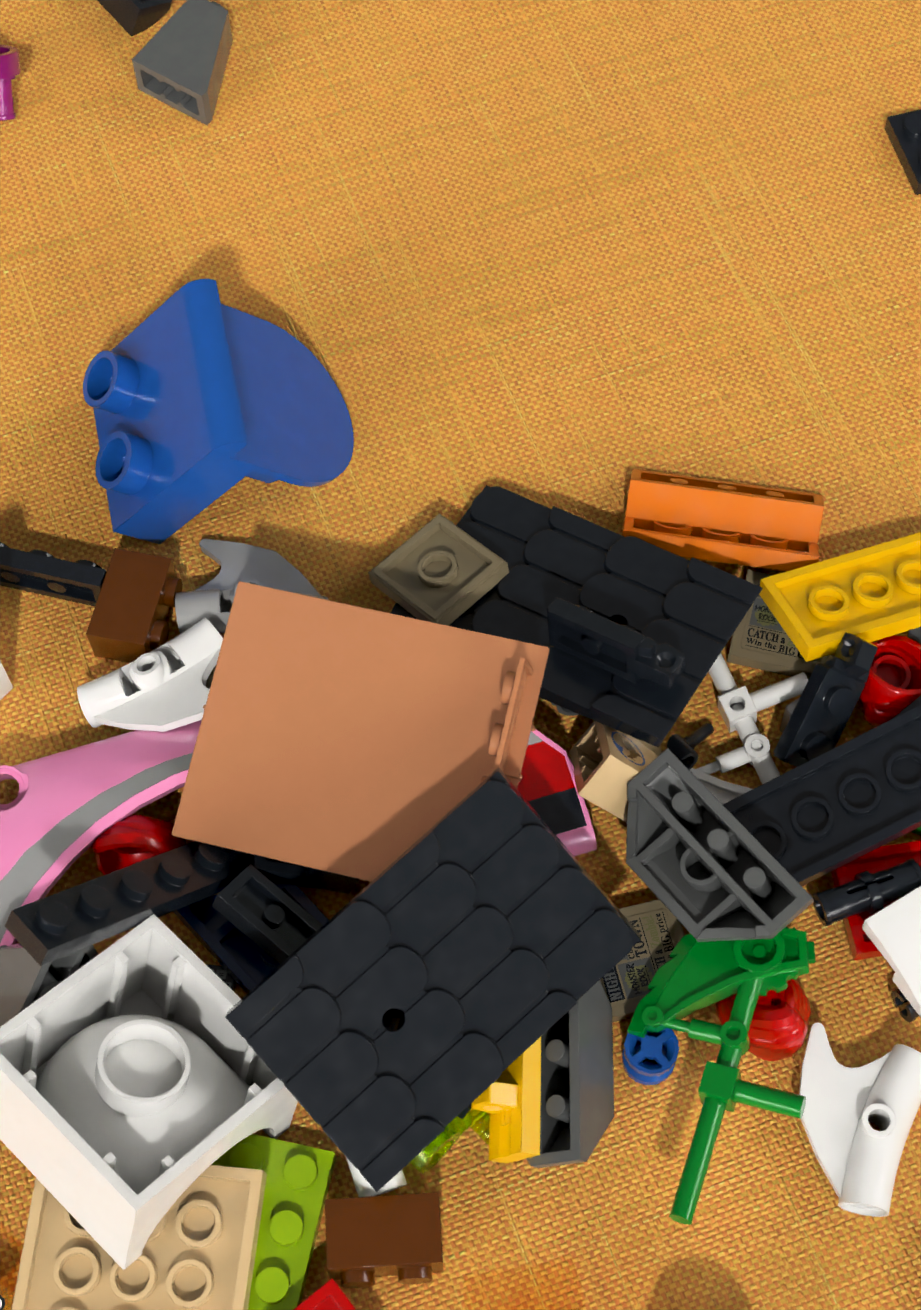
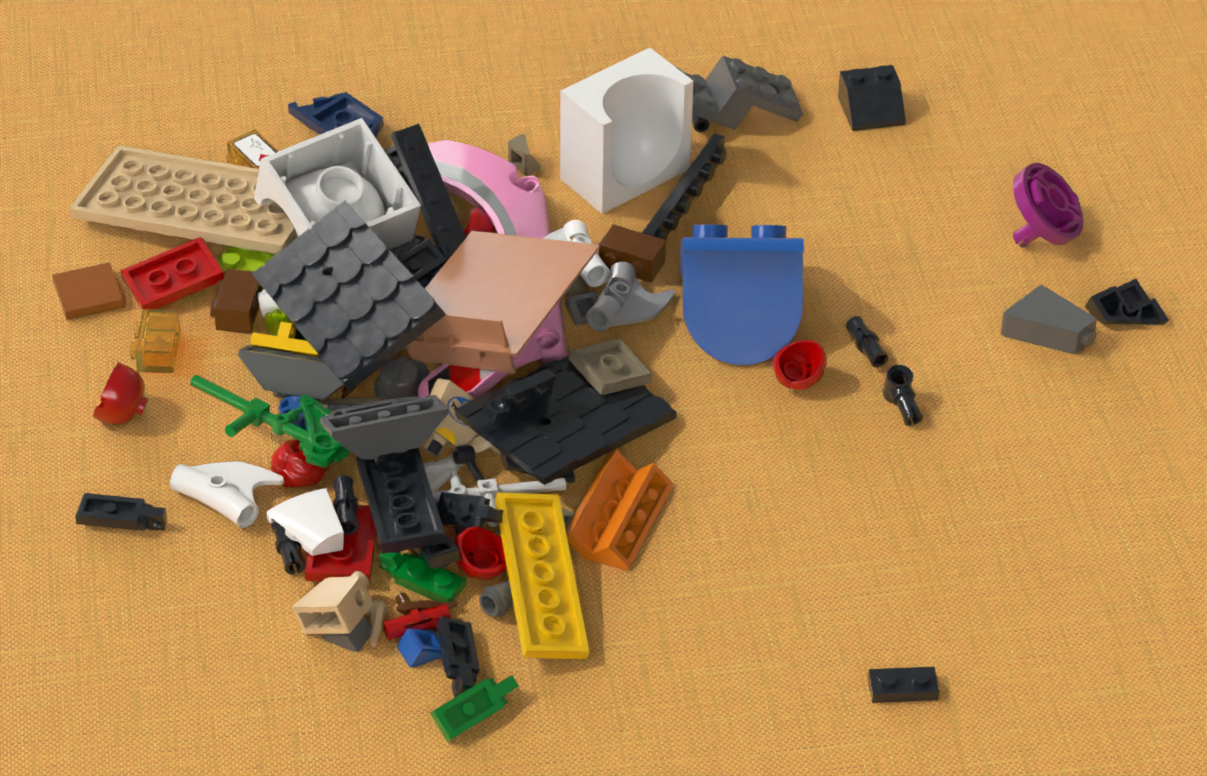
camera: 100 degrees right, 20 degrees down
(273, 268) = (874, 351): none -> black pin
(361, 329) = (800, 364): none -> red hair
(374, 208) = (900, 392): none -> black pin

